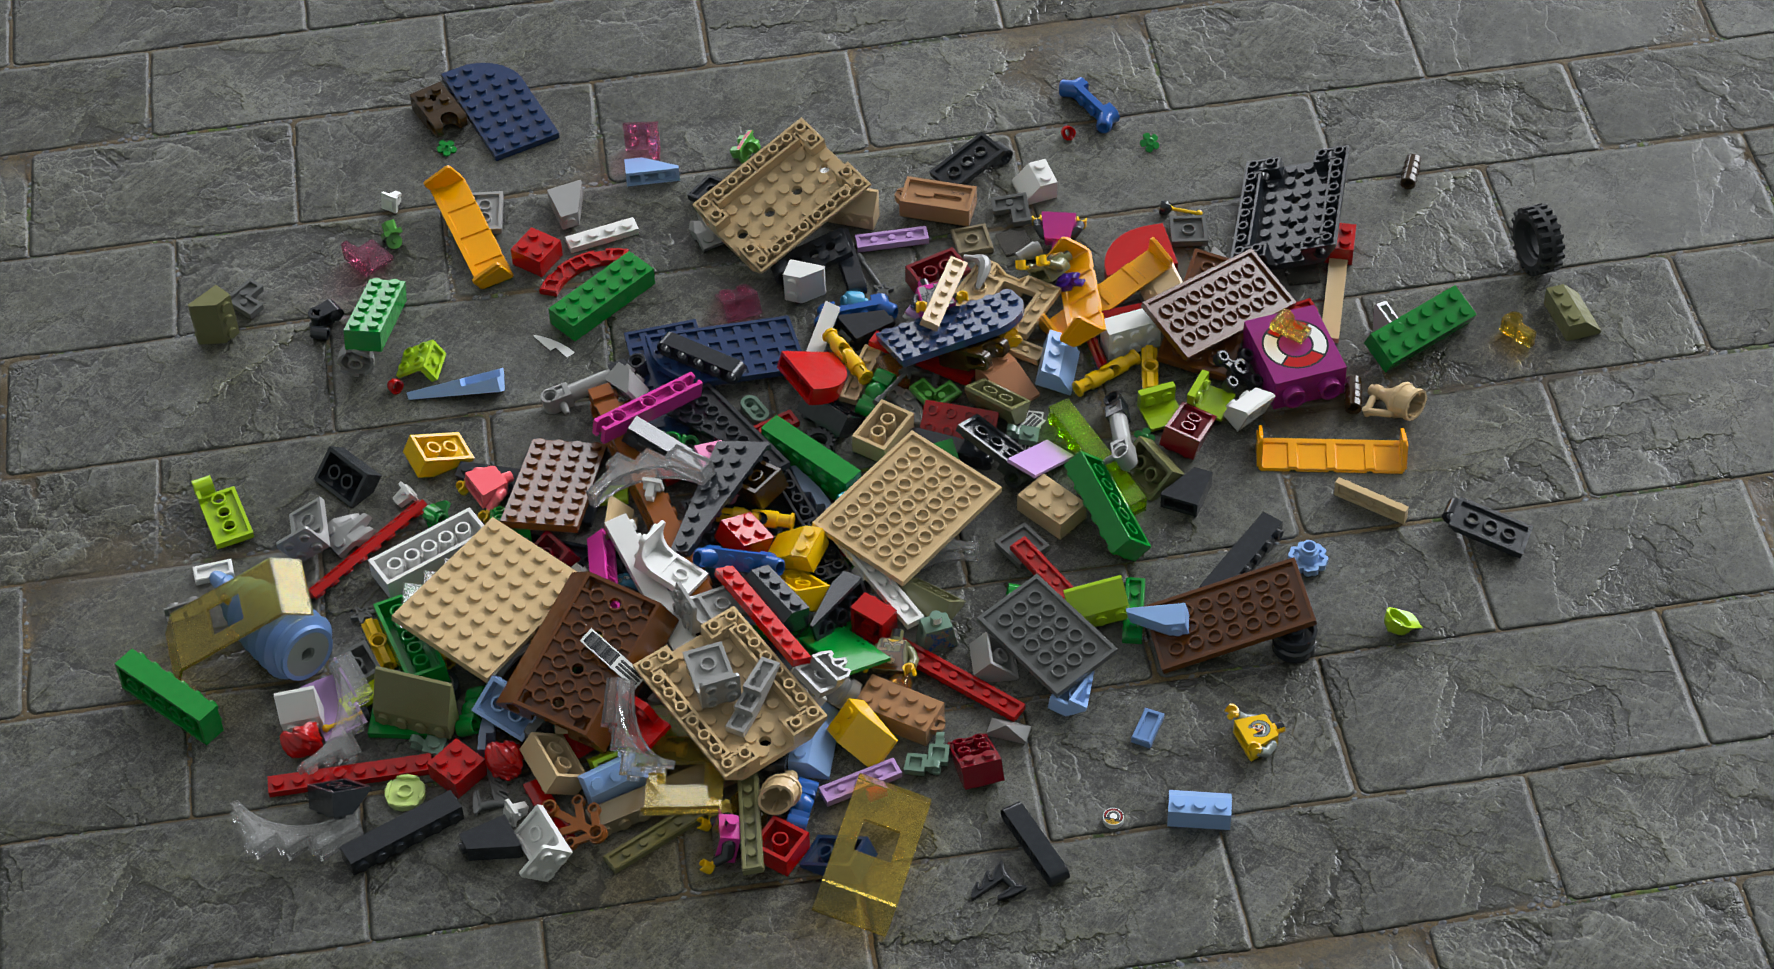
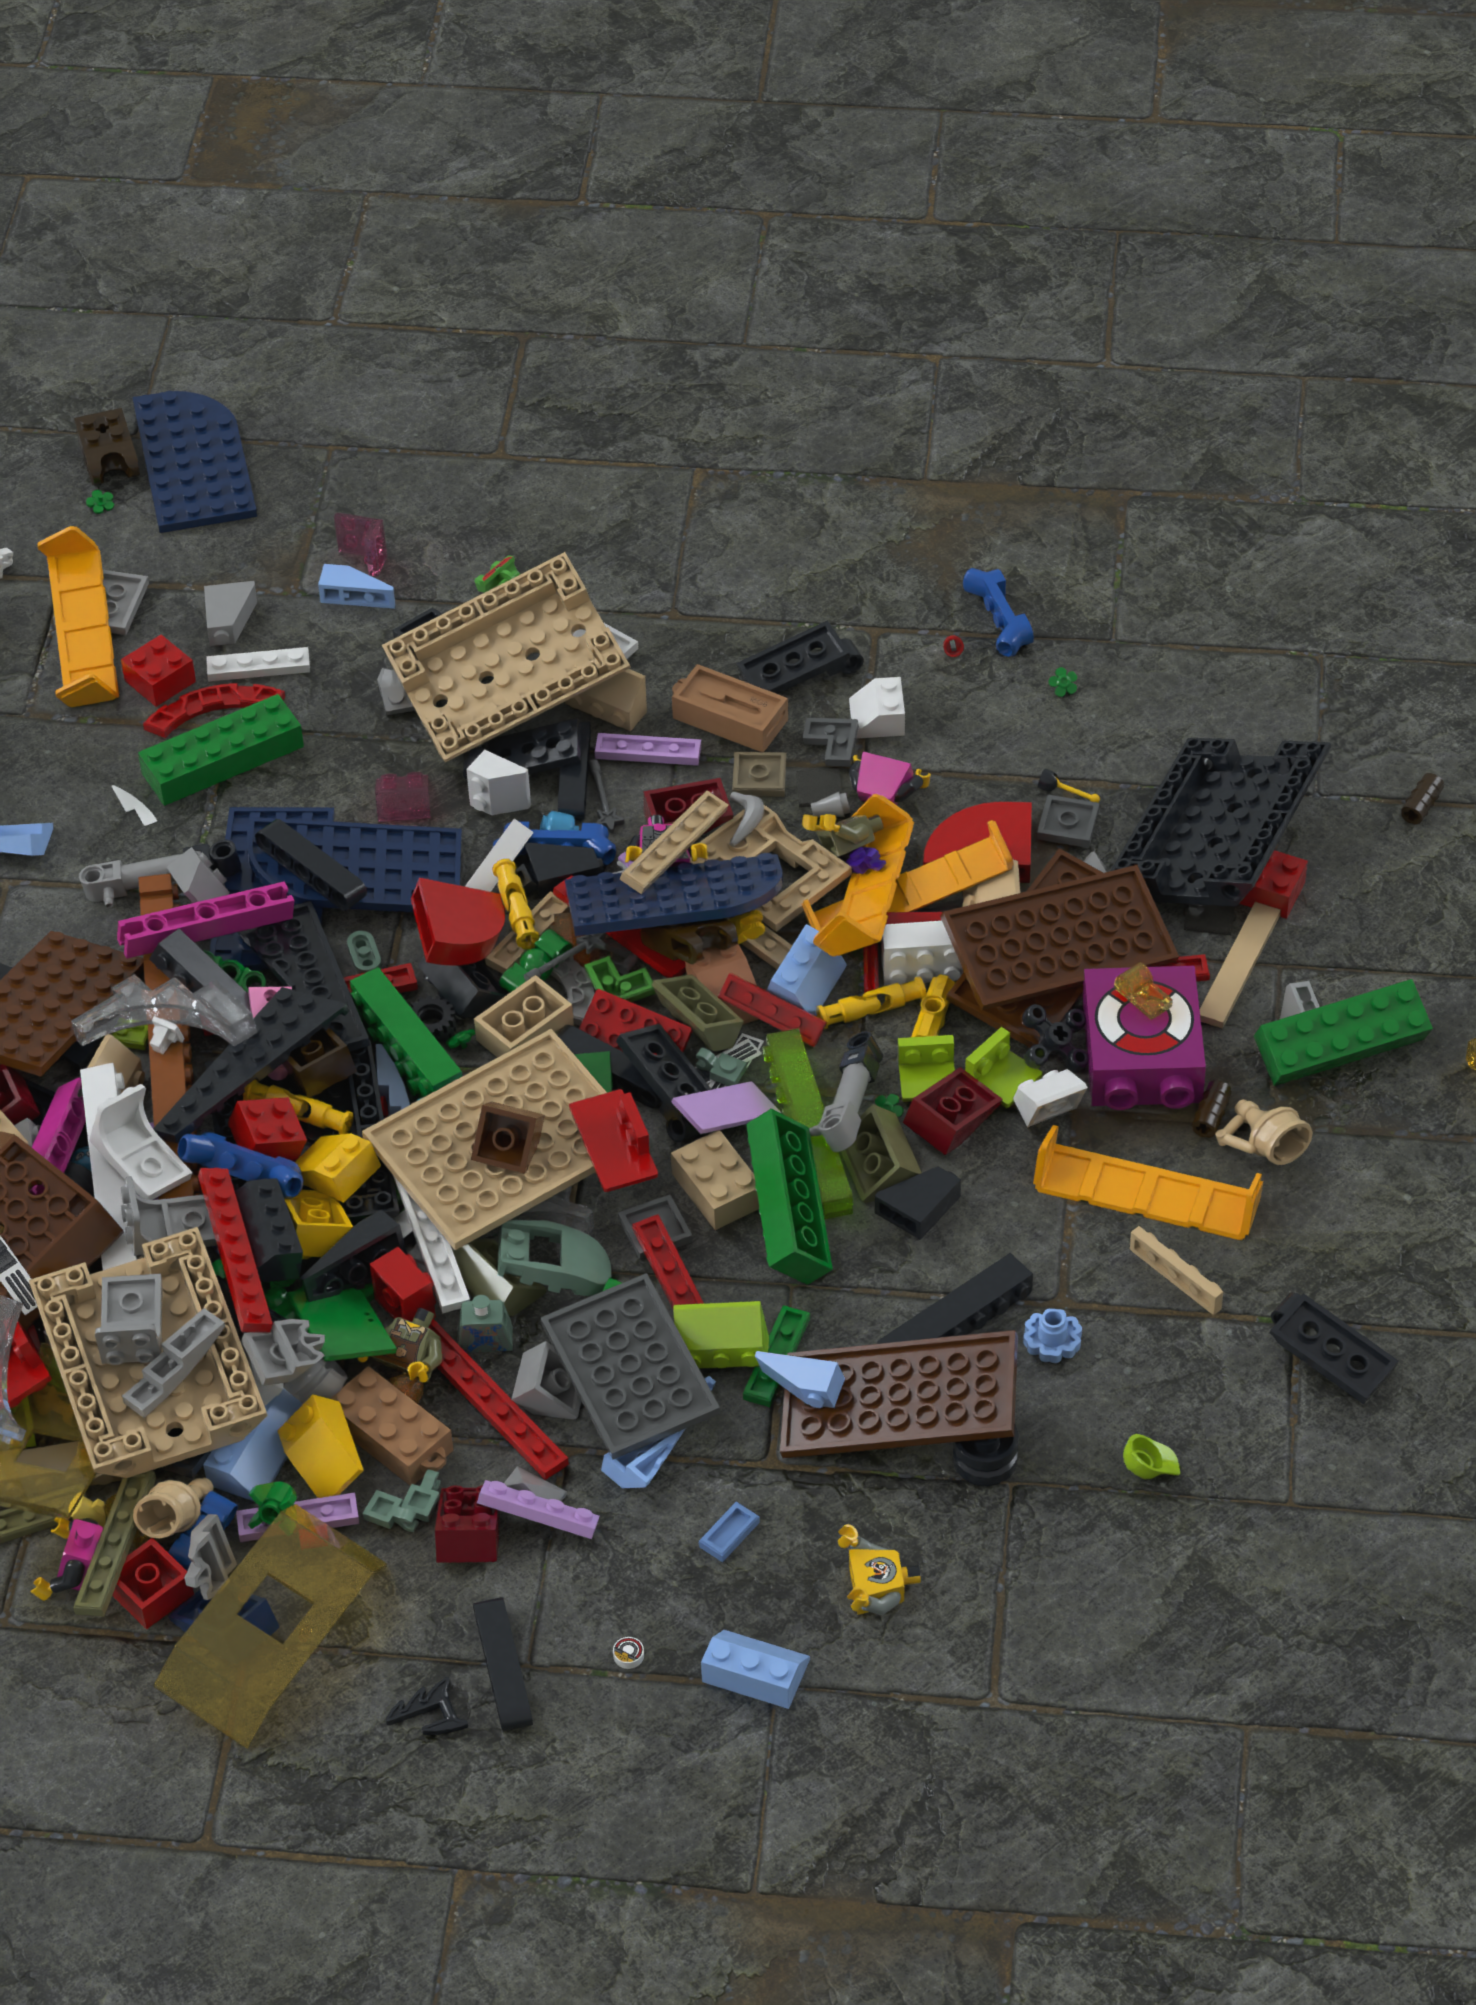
camera: 15 degrees right, 0 degrees up
(817, 819) = (209, 1557): none -> light grey plate
(843, 451) = (460, 1038): none -> green plant
(847, 775) = (271, 1500): none -> green brick
(913, 505) = (507, 1136): none -> reddish brown slope
(985, 491) = (614, 1139): none -> red bracket
(986, 577) = (582, 1260): none -> sand green slope
(1026, 740) = (541, 1510): none -> lavender plate
(1044, 389) = (771, 1008): none -> red tile

